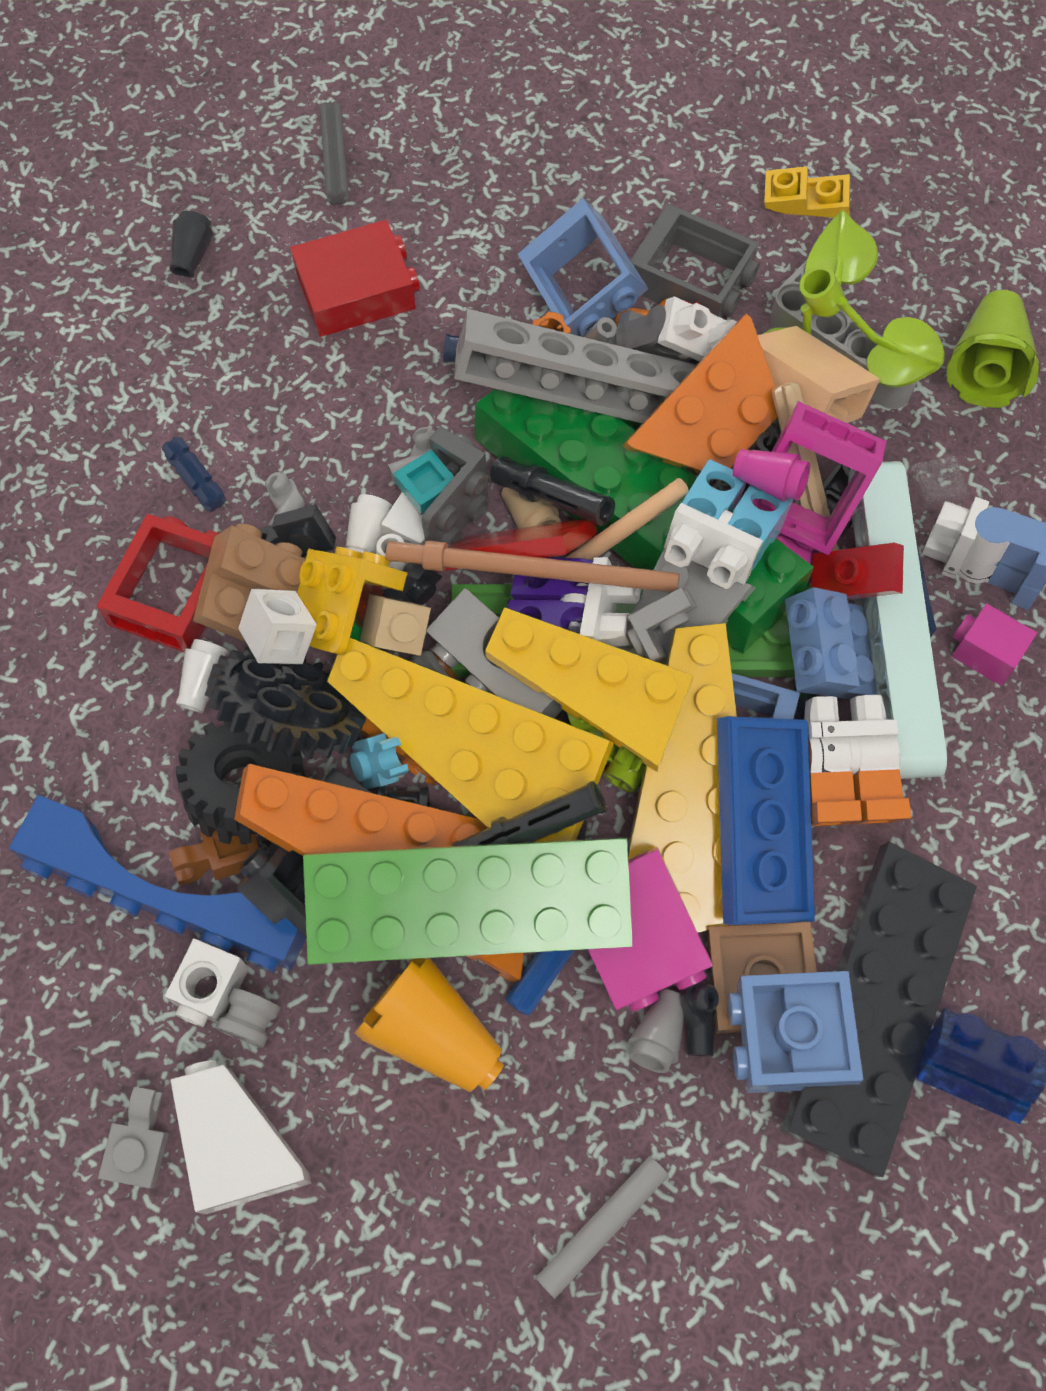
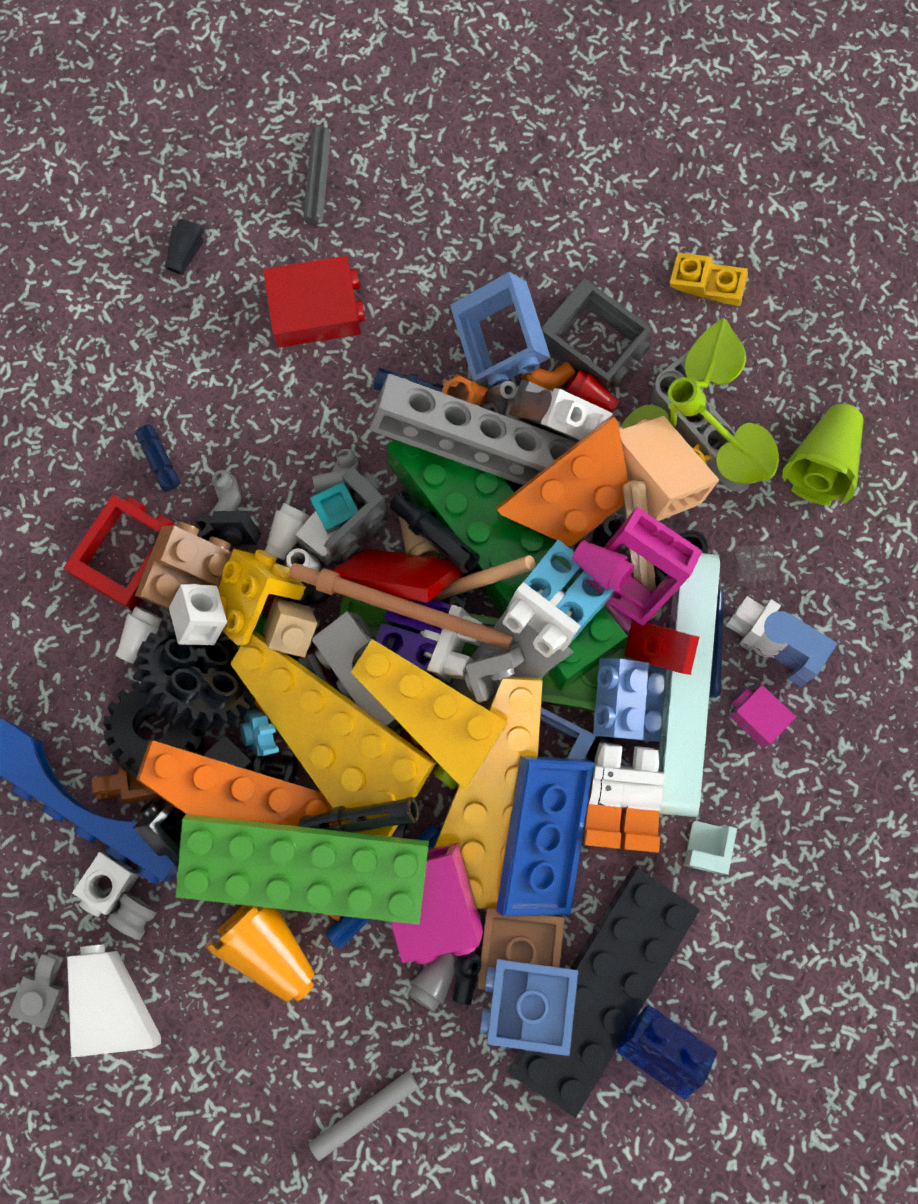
camera: 10 degrees right, 10 degrees up
(971, 810) = (710, 848): none -> light aqua panel

